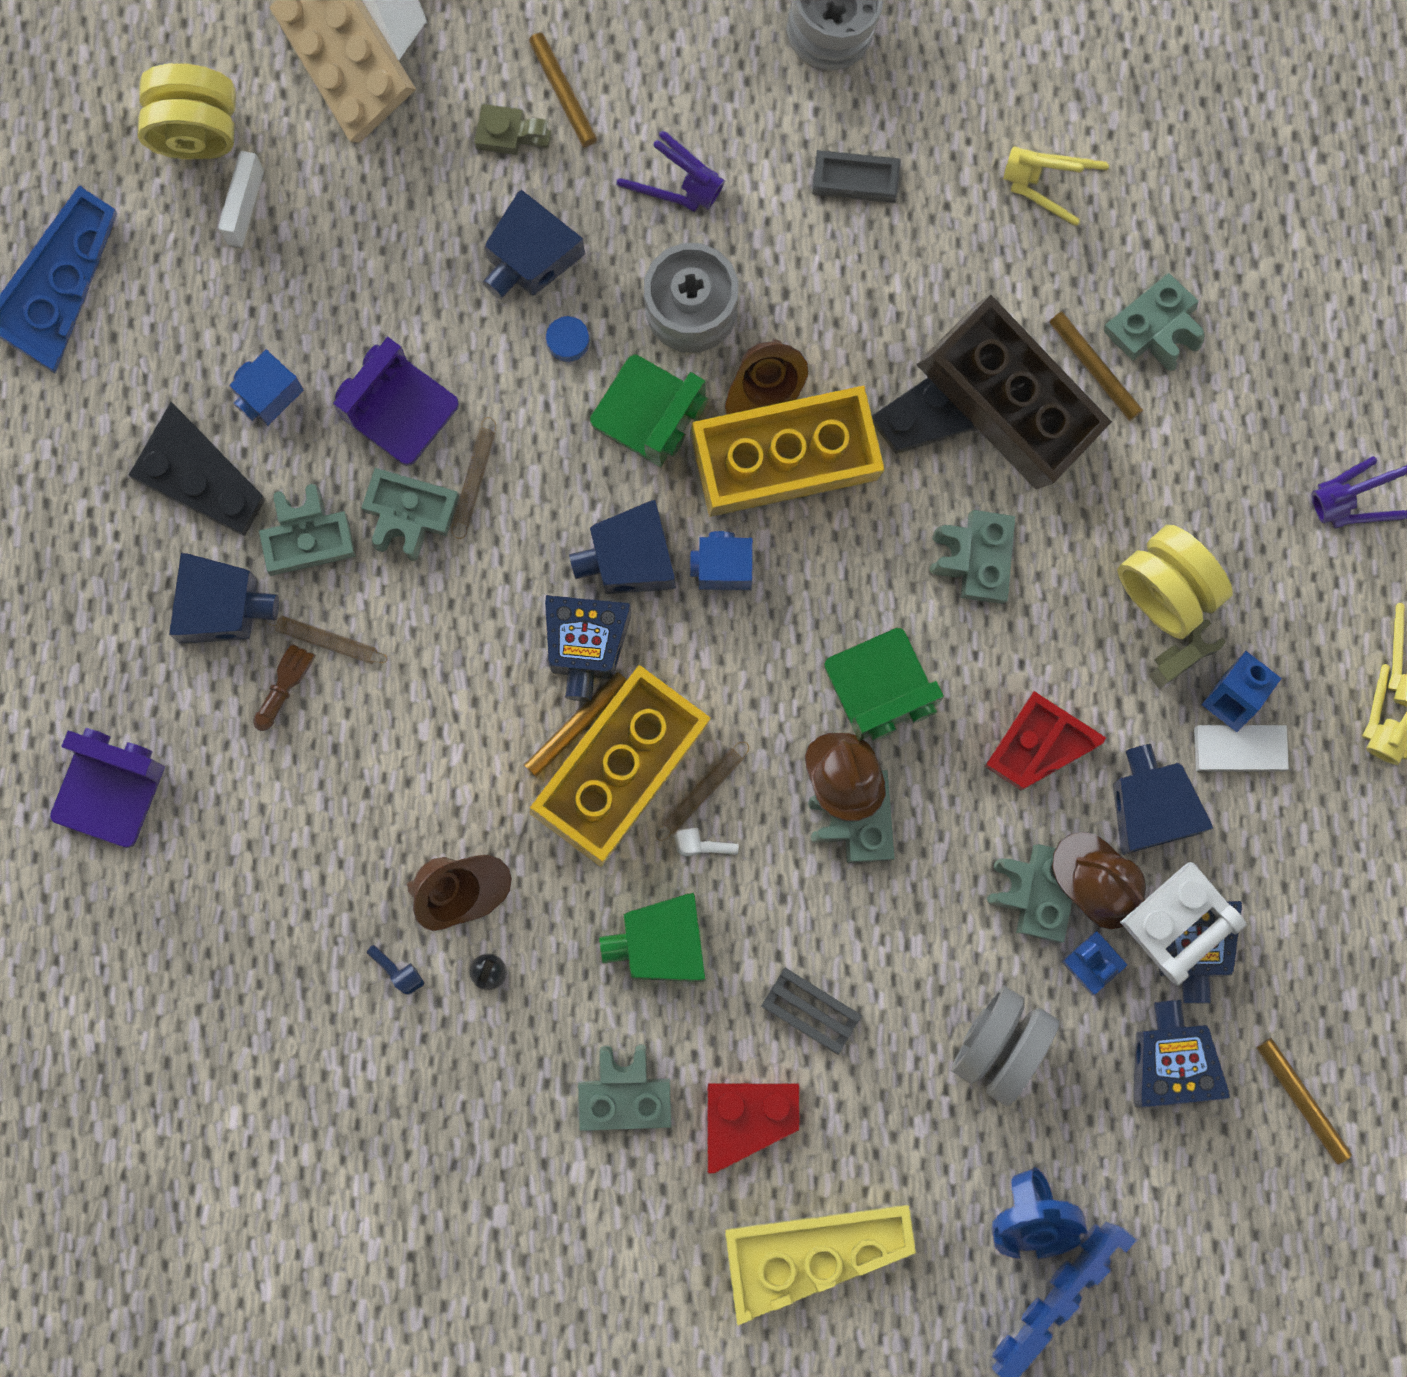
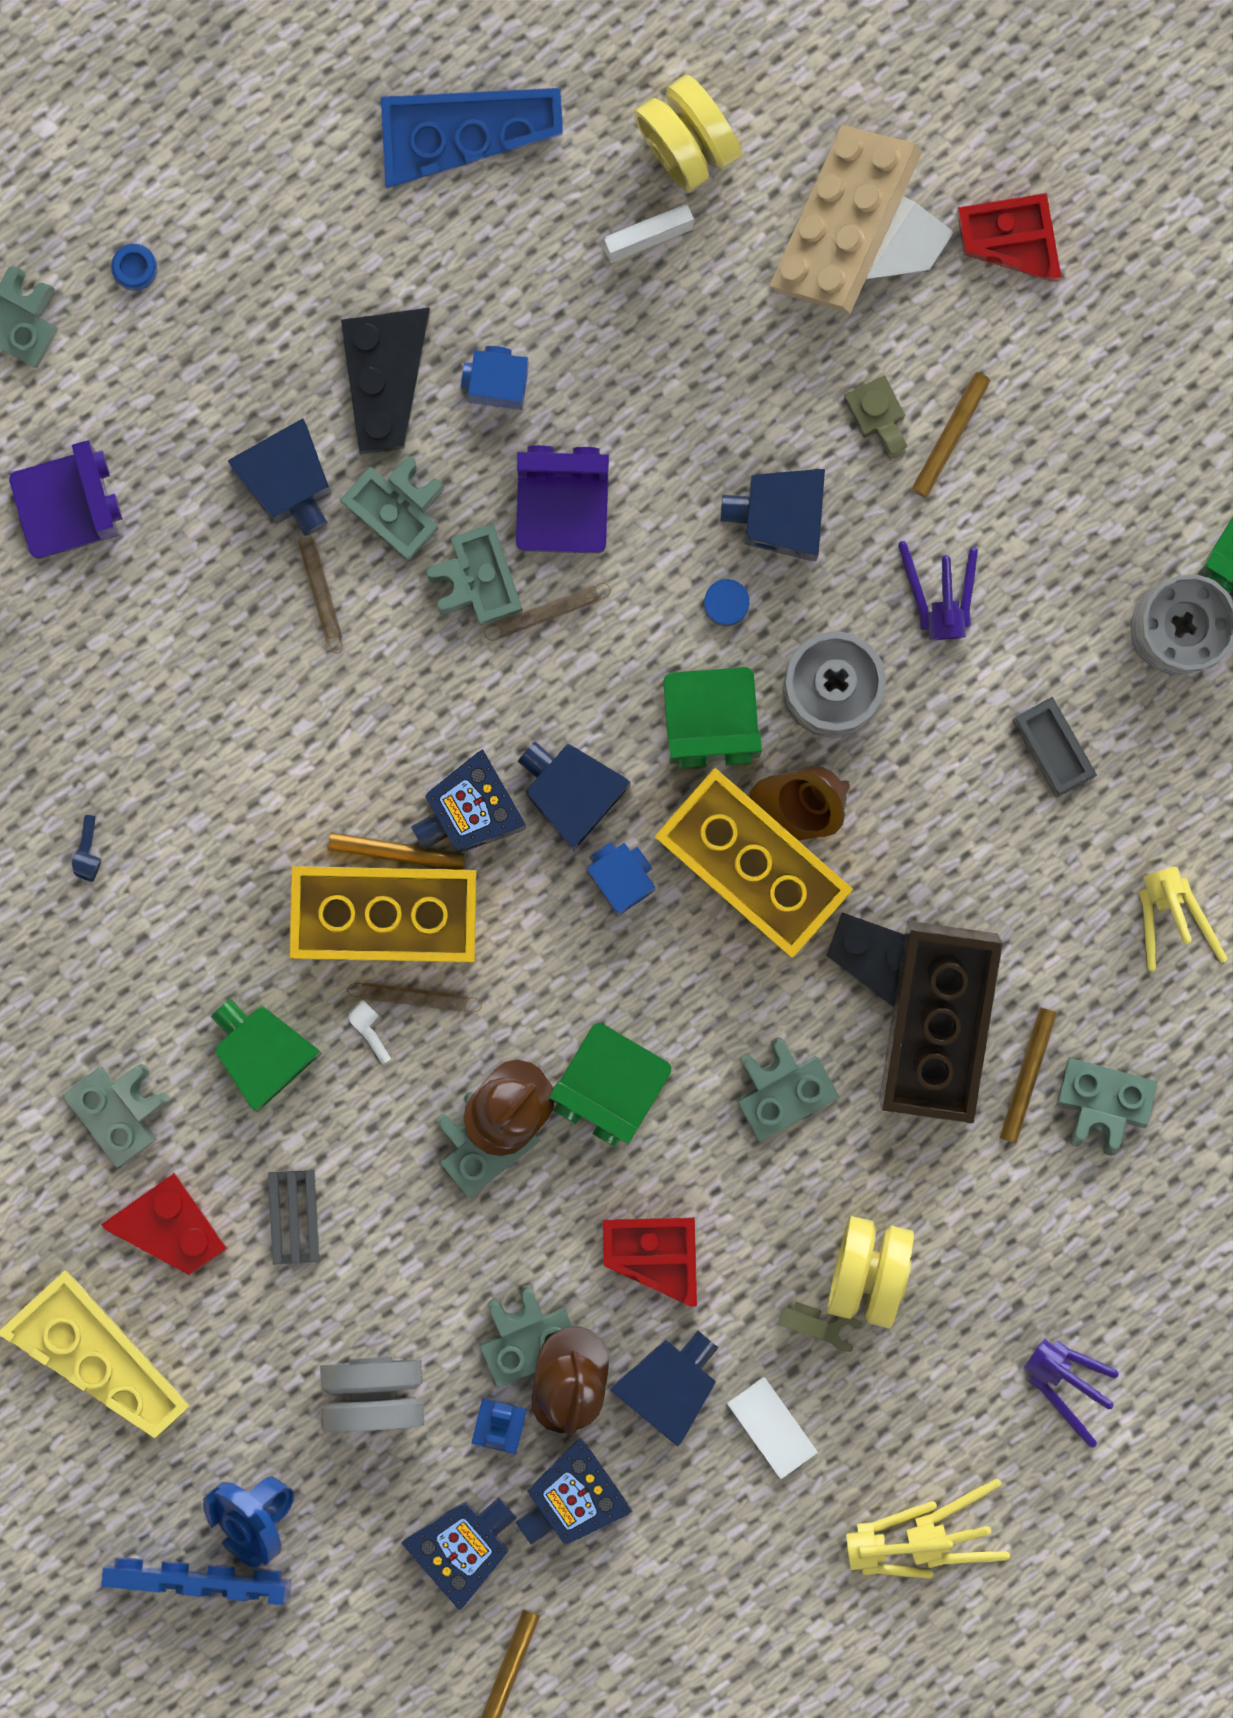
camera: 50 degrees right, 5 degrees up
(290, 673) = (270, 580): reddish brown piece -> none
(458, 890) = (185, 855): reddish brown piece -> none
(496, 975) = (140, 936): black hinge -> none
(1172, 911) = (582, 1459): white plate -> none
(1241, 691) = (817, 1393): blue brick -> none

